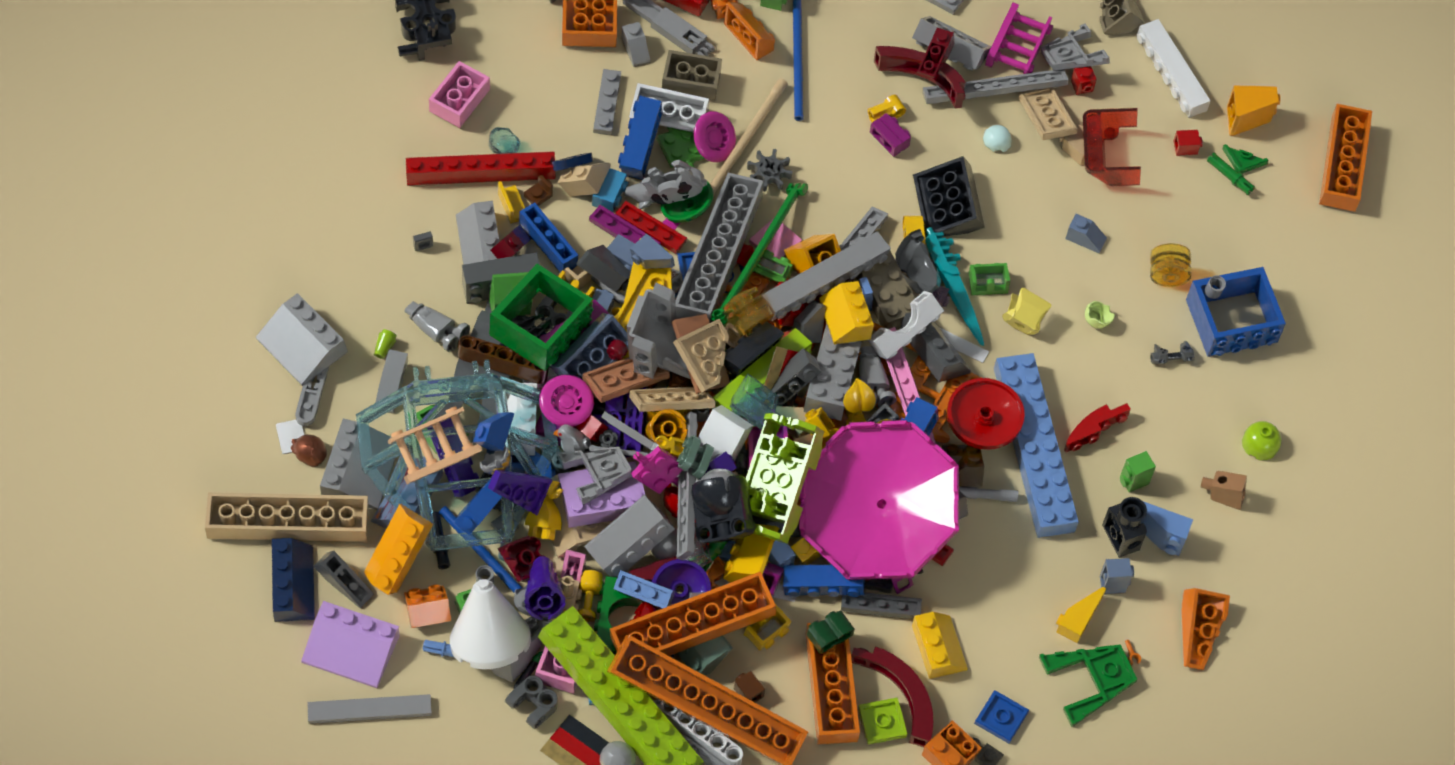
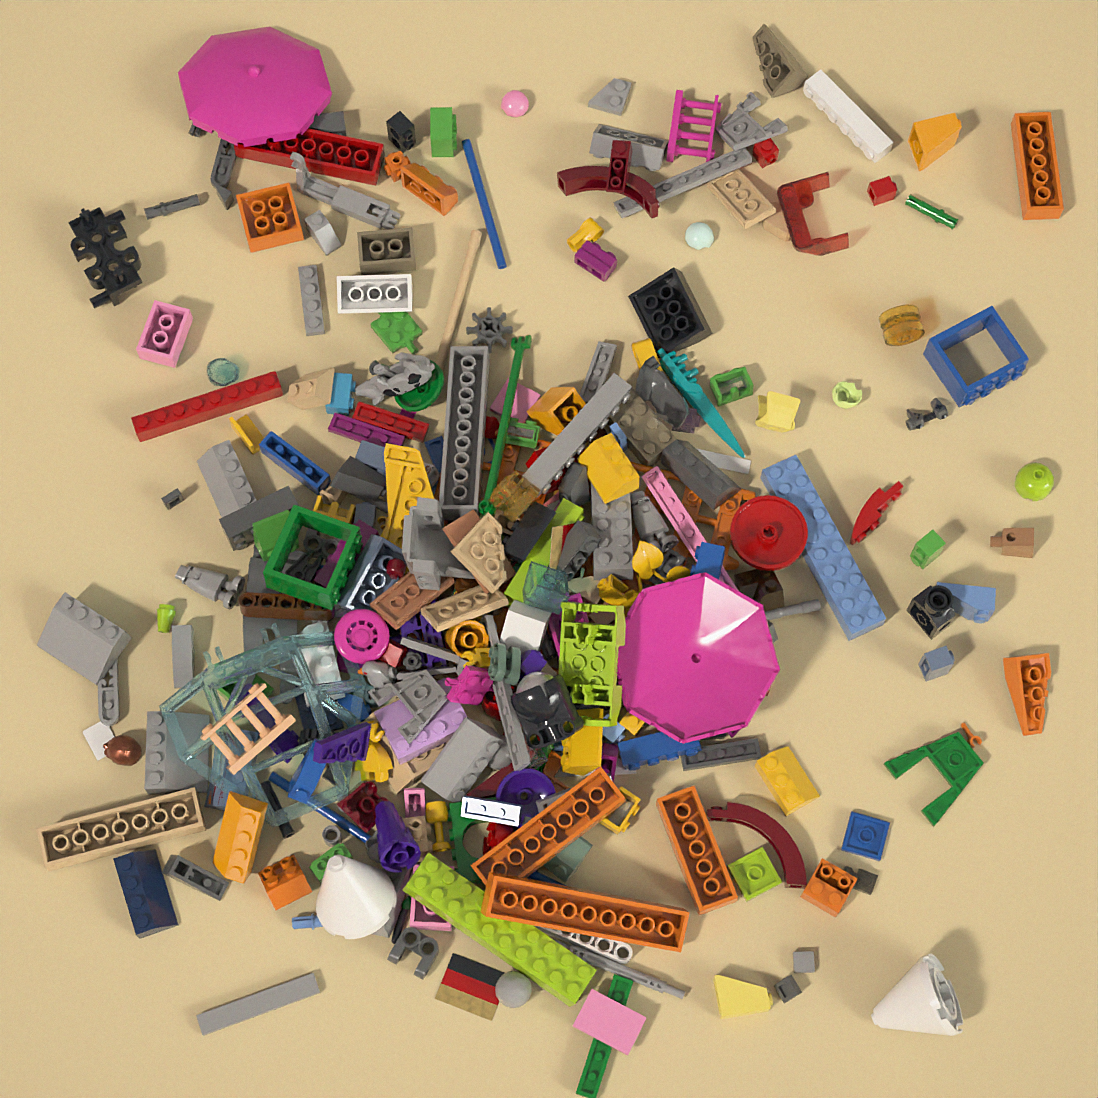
camera: 10 degrees left, 10 degrees up
(350, 644) = (221, 944): lavender slope -> none
(494, 431) = (302, 698): blue slope -> none
(497, 461) = (313, 727): light grey hair -> none
(511, 243) = (260, 480): dark red slope -> none
(540, 191) = (272, 414): reddish brown bracket -> none
(572, 161) = (295, 375): dark blue beam -> none
(641, 137) = (356, 333): blue brick -> none
(651, 254) = (401, 460): sand blue slope -> none
(710, 137) = (422, 312): dark pink wheel -> none
(749, 687) = (618, 878): reddish brown brick -> none
(830, 631) = (682, 803): dark green brick -> none
(923, 311) = (682, 446): white arch -> none
(1078, 616) = (910, 716): yellow slope -> none
(1086, 233) = (811, 313): sand blue slope -> none
(1217, 281) = (958, 336): light grey beam -> none
(1243, 160) = (938, 193): green tile -> none

